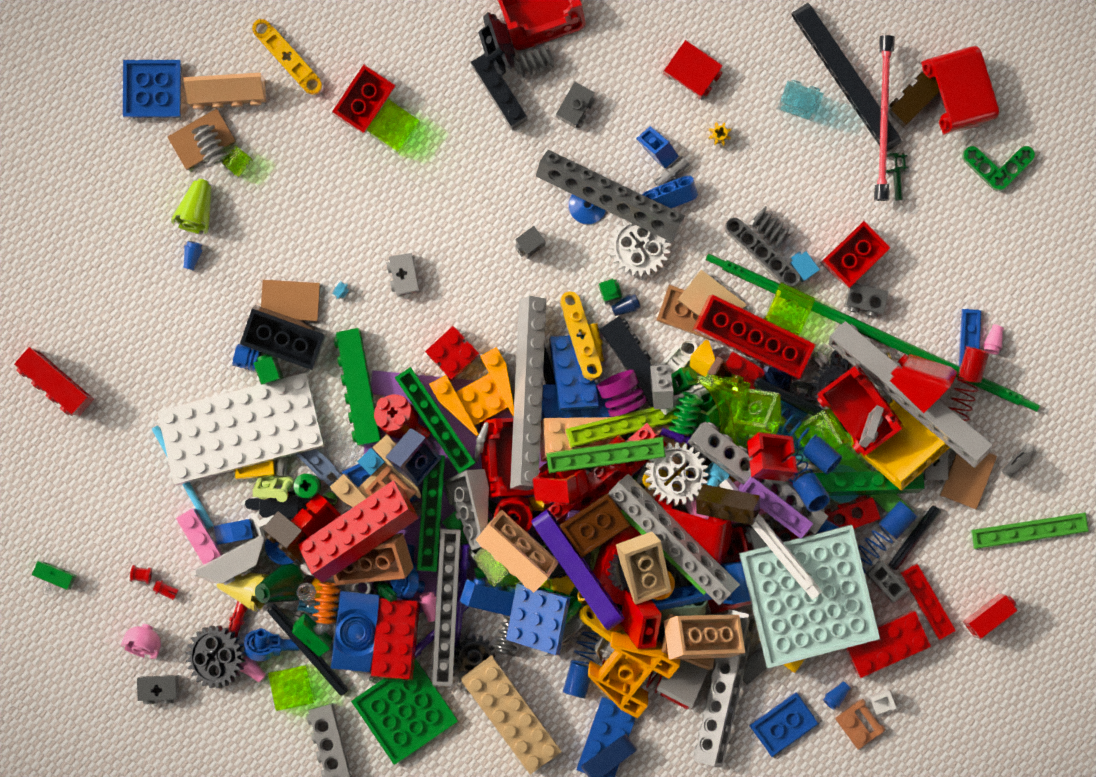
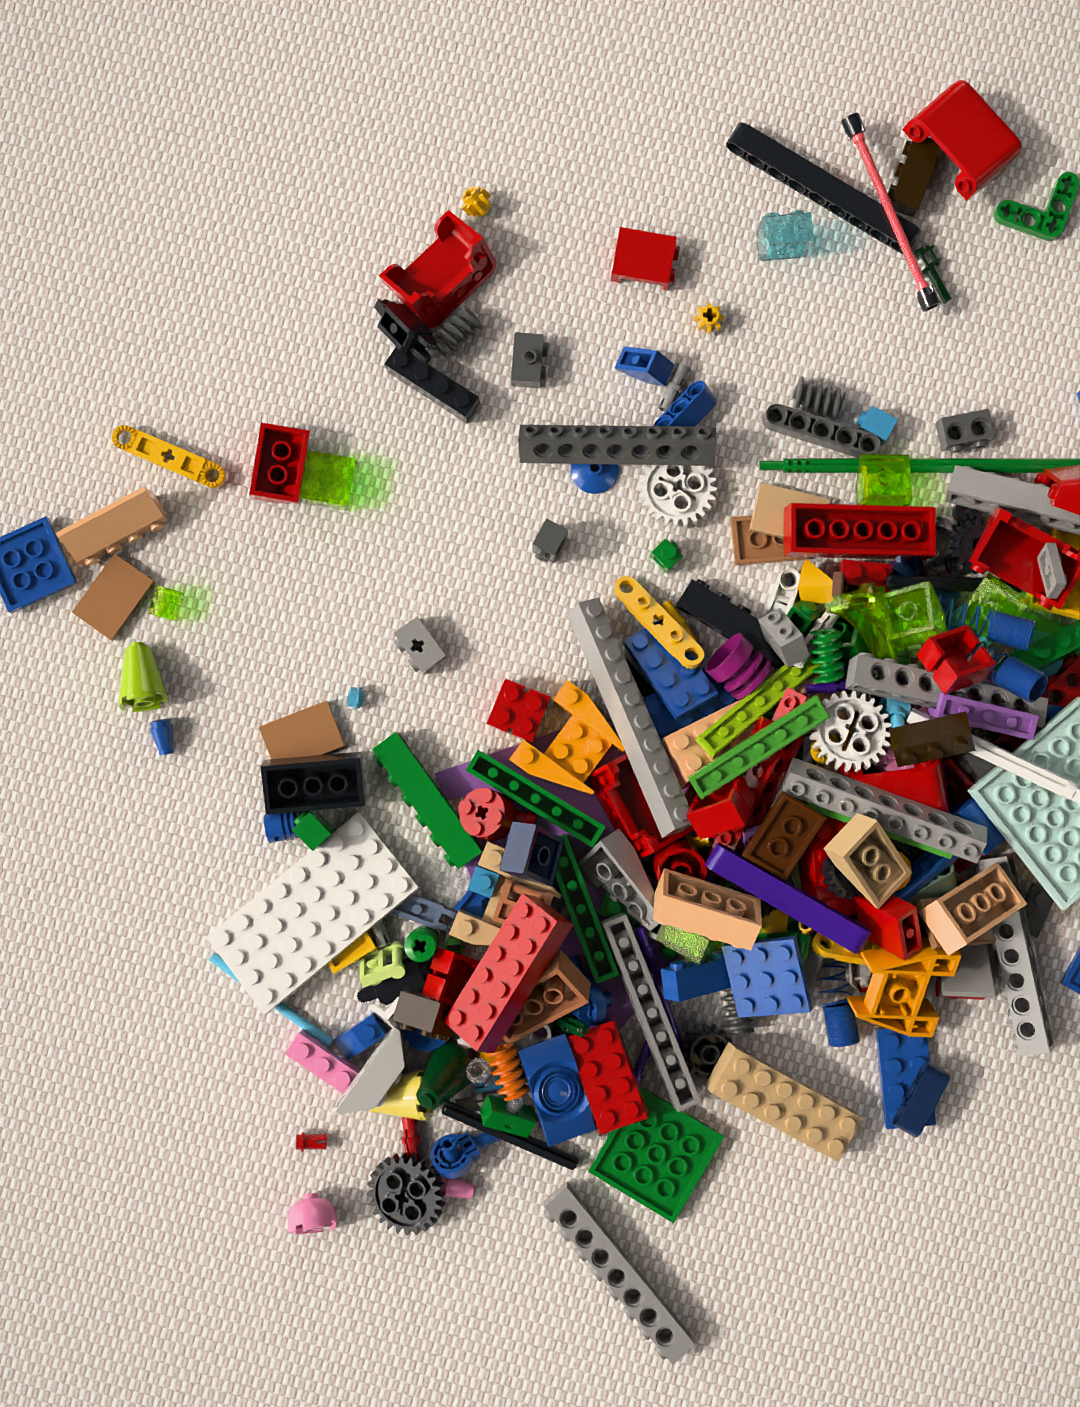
camera: 25 degrees left, 0 degrees up
(53, 381) = (67, 959): red brick -> none
(53, 577) = (172, 1187): green piece -> none
(140, 574) = (274, 1137): red bush -> none
(169, 687) = (365, 1251): dark grey brick -> none
(209, 145) = (123, 598): light grey piece -> none
(291, 687) = (512, 1188): clear neon green brick -> none
(428, 604) = (625, 1015): bright pink cone -> none
(481, 441) = (600, 798): light grey hand -> none
(626, 305) = (693, 563): dark blue cone -> none
(855, 254) = (930, 384): red slope -> none

